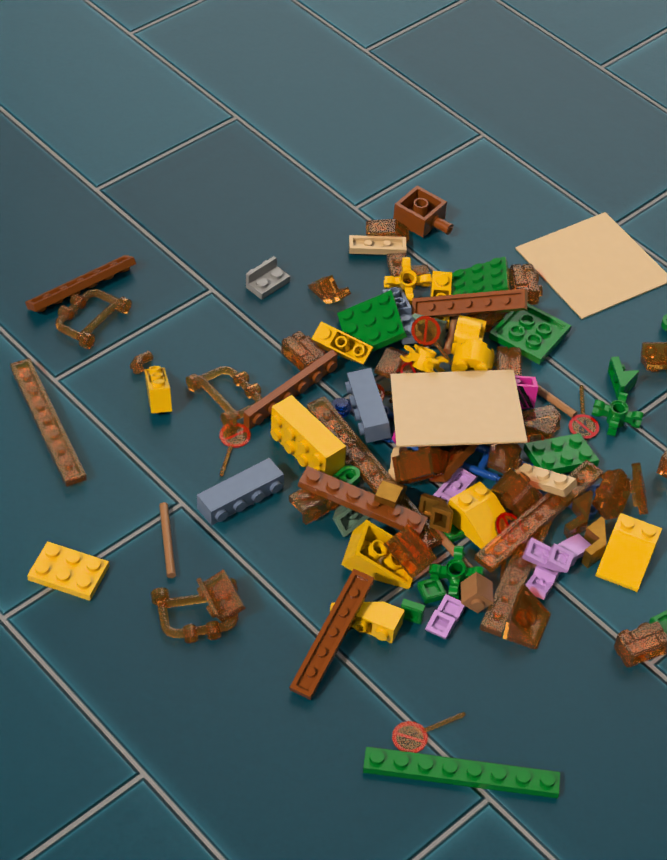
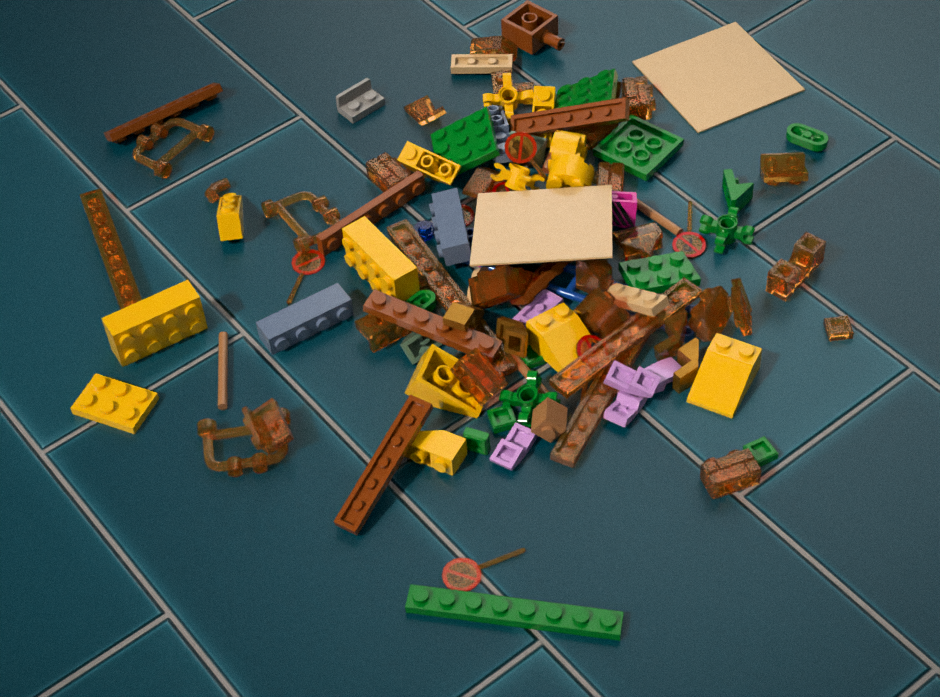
camera: 10 degrees right, 0 degrees up
(101, 494) = (155, 323): none -> yellow brick
(526, 620) = (601, 448): clear orange slope -> none

